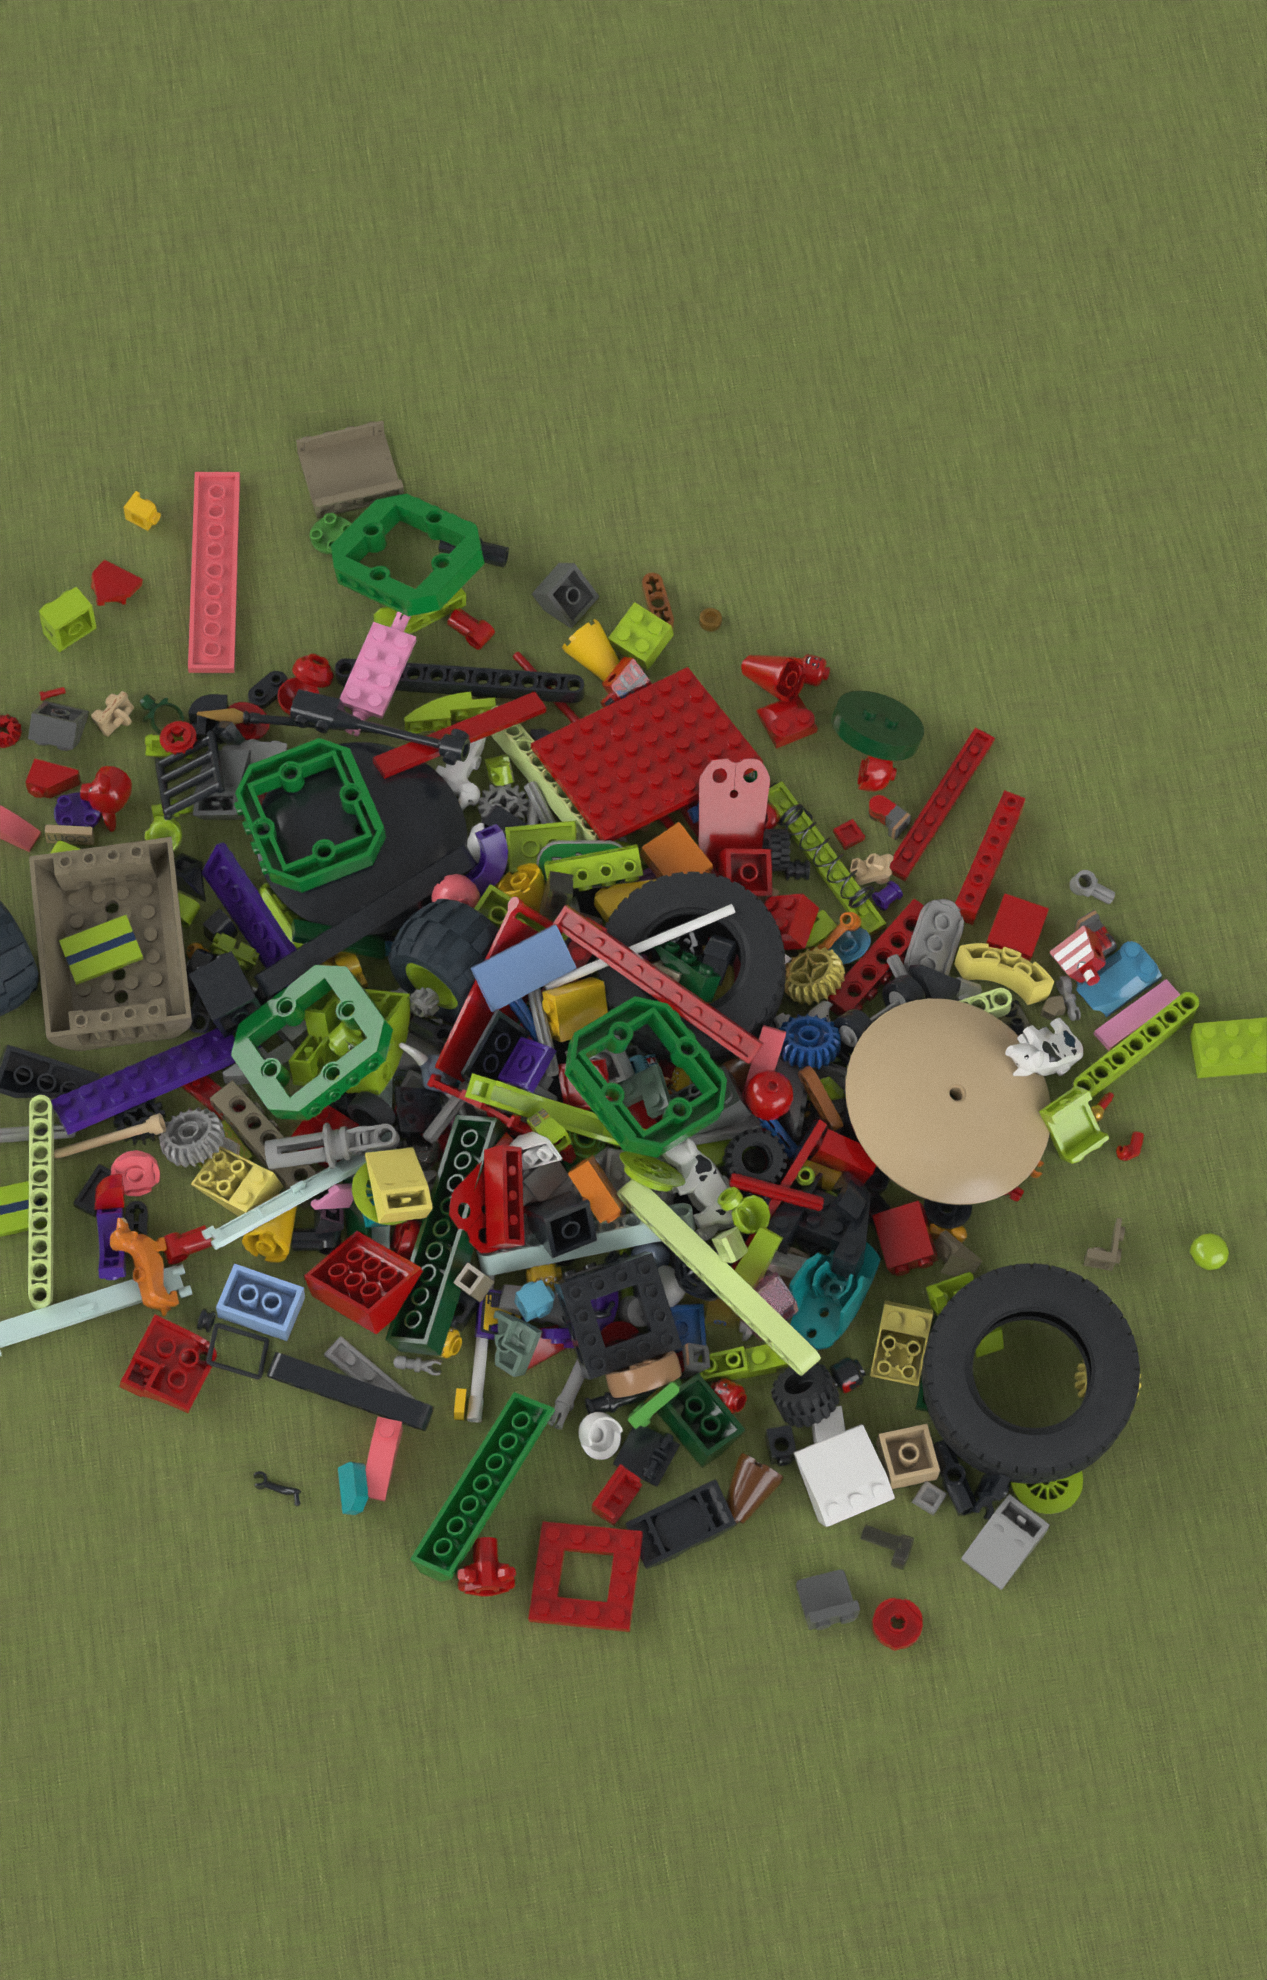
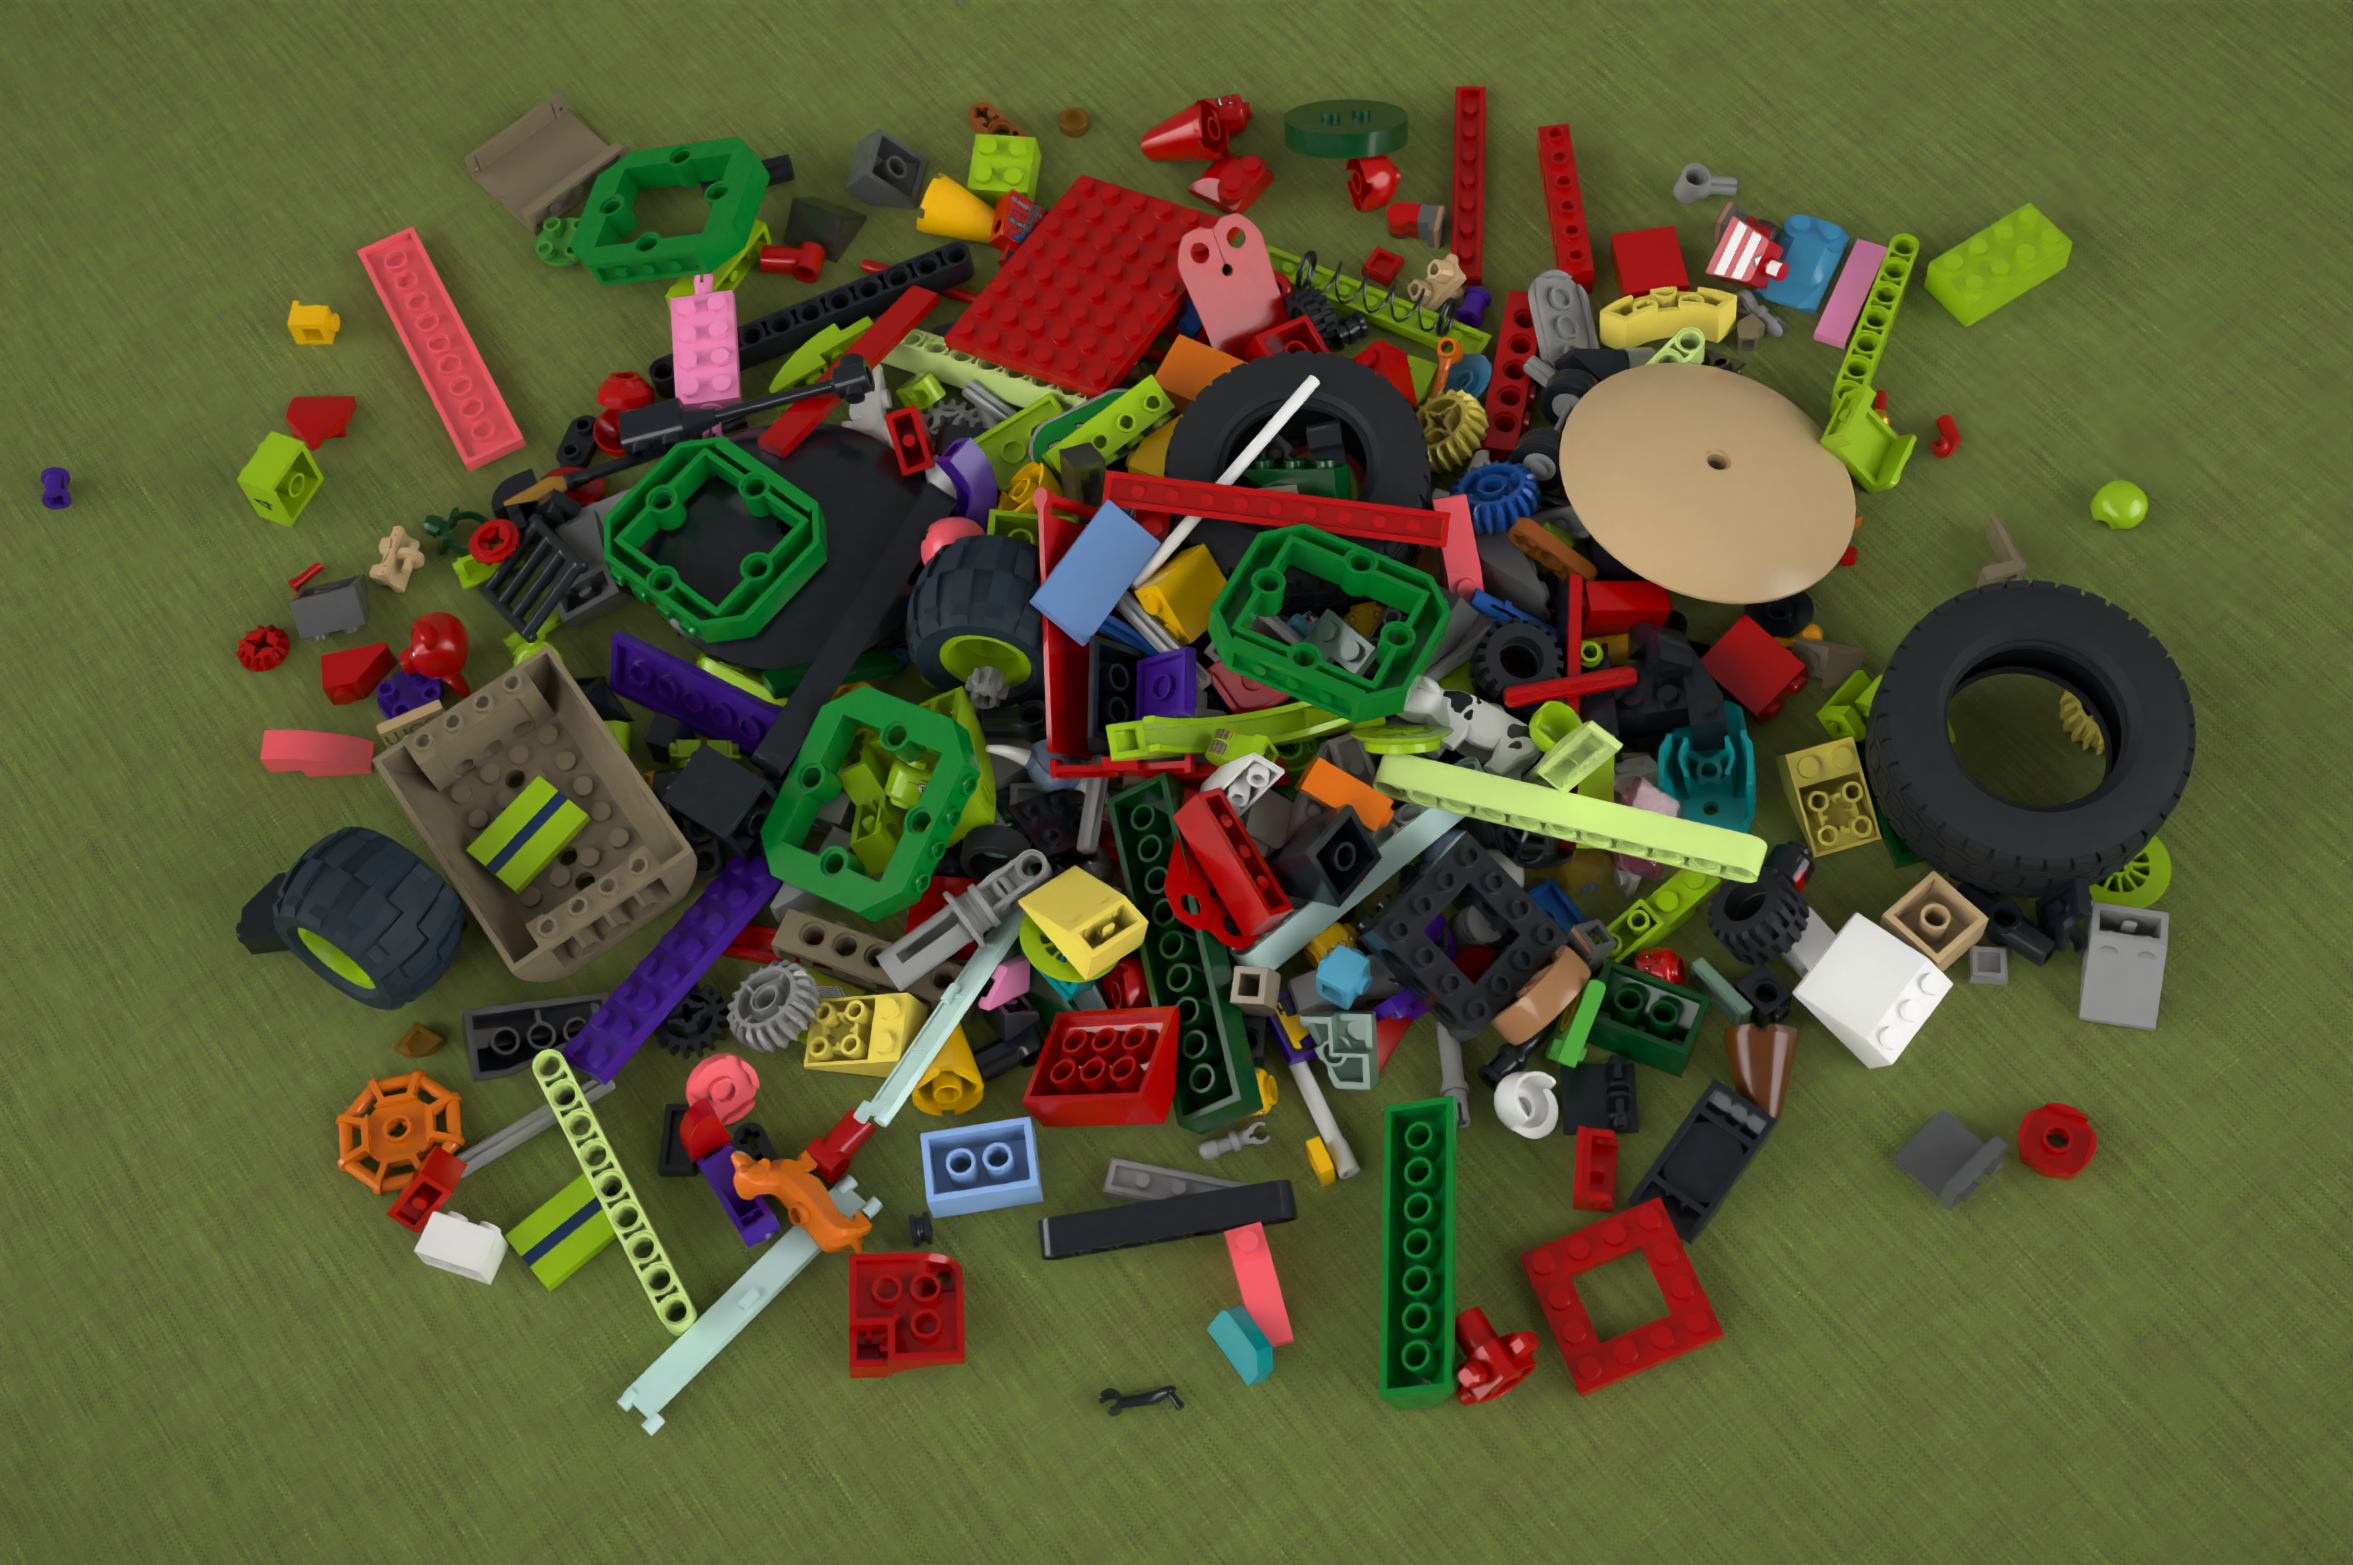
camera: 15 degrees left, 5 degrees down
(153, 1125) = (716, 1013): tan piece -> none
(232, 1369) = (989, 1274): black piece -> none
(471, 807) = (911, 440): none -> red slope
(504, 611) = (823, 224): none -> clear smoke slope
(729, 1198) = (1519, 721): lime tile -> none
(756, 1429) = (1722, 994): none -> sand green tile
(768, 1095) = (1489, 575): red cylinder -> none
(901, 1545) = (1997, 1040): clear smoke piece -> none
(1045, 1052) = (1782, 373): white animal -> none

